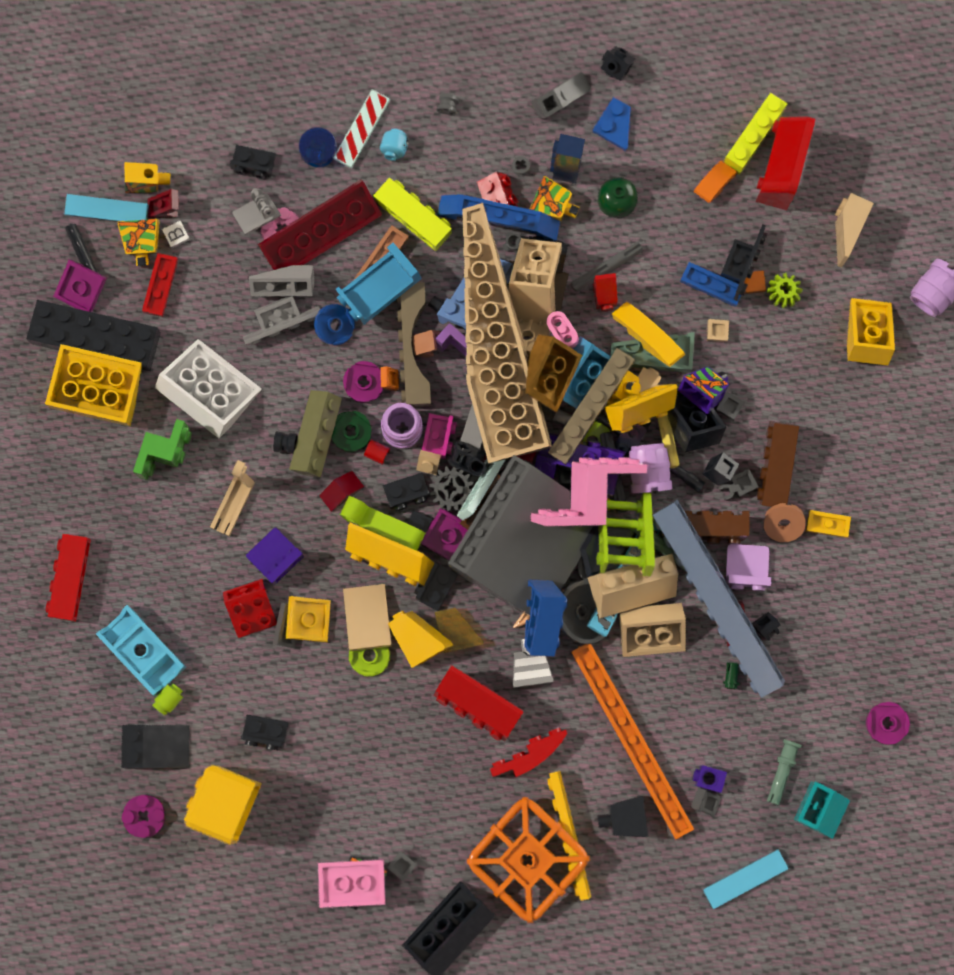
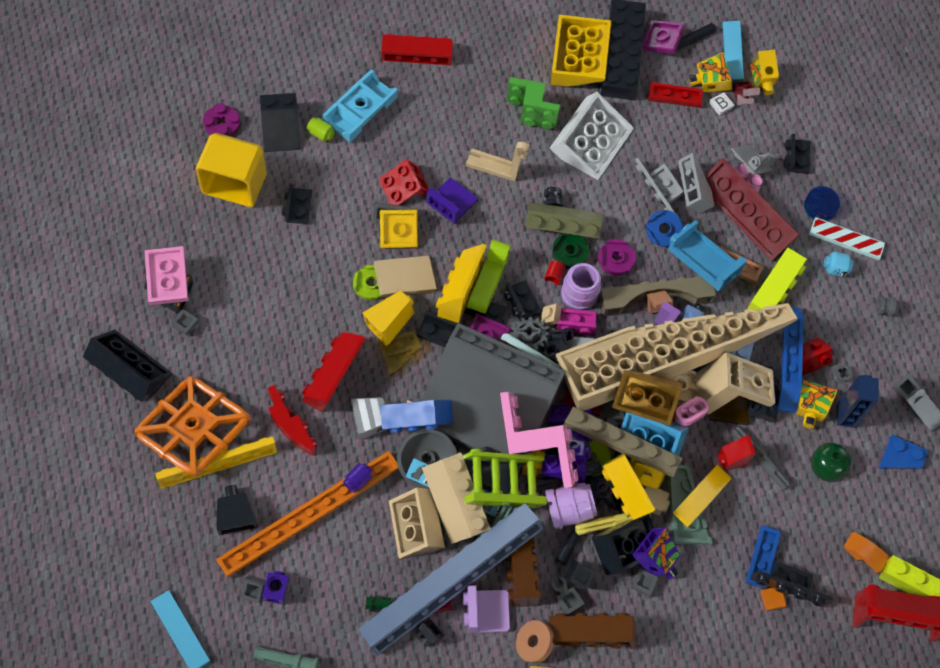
camera: 80 degrees right, 15 degrees down
(340, 490) = (520, 248): dark red slope -> none
(389, 378) = (622, 276): orange tile -> none
(602, 685) = (358, 477): none -> dark purple brick
(717, 330) = (717, 565): tan plate -> none
(790, 286) = (761, 627): lime gear -> none

